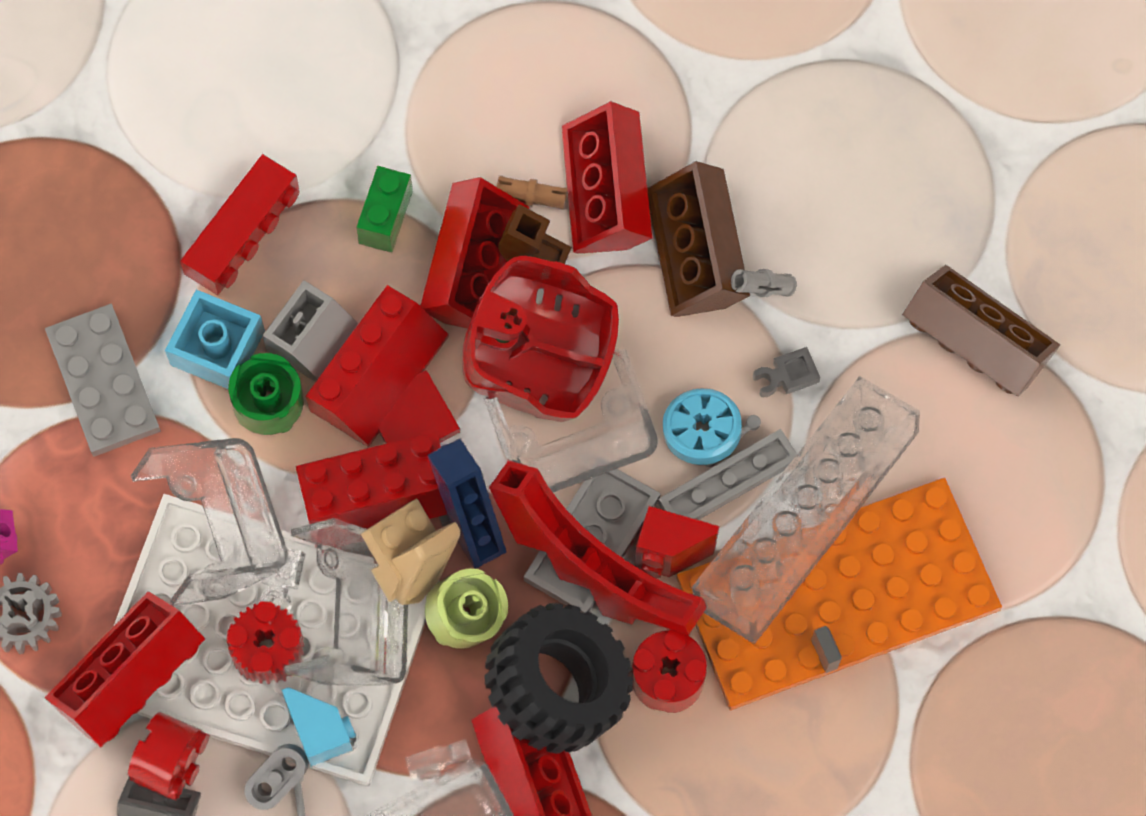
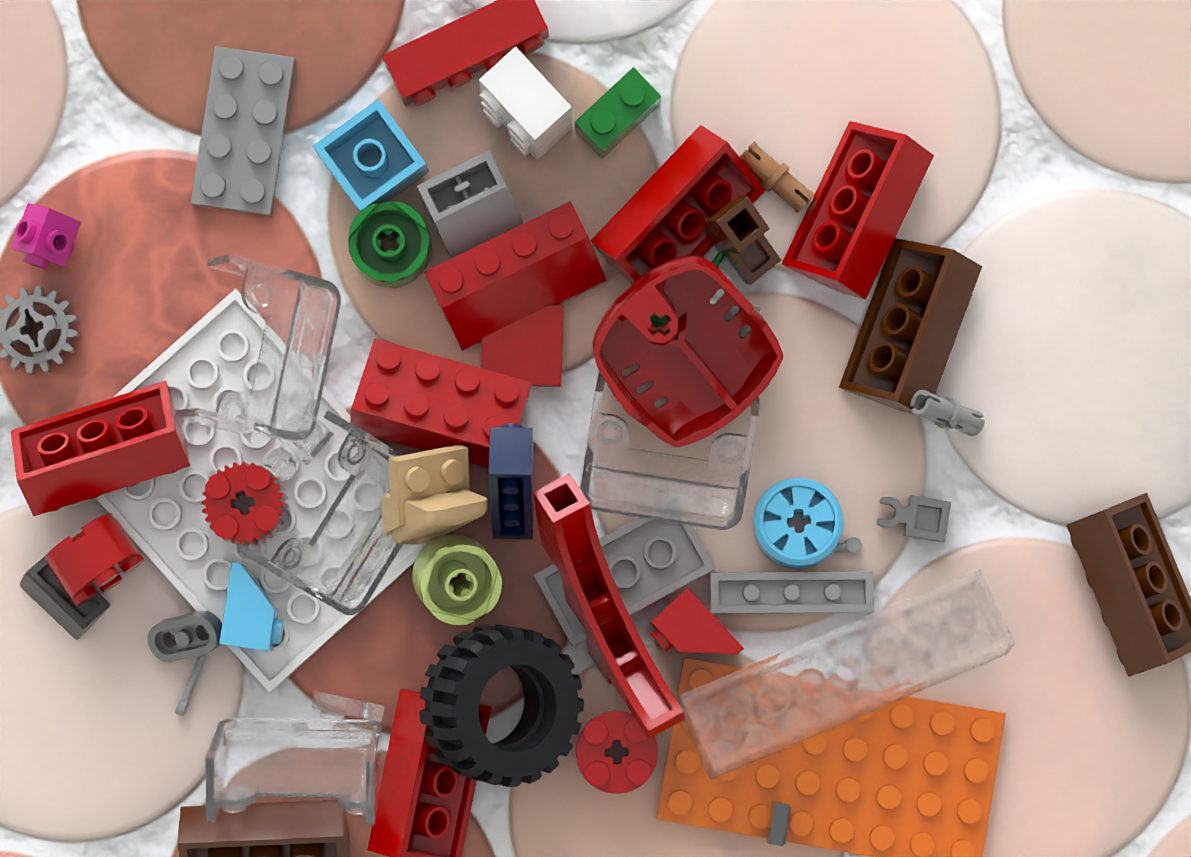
camera: 30 degrees right, 15 degrees up
(312, 232) = (525, 104): none -> white brick

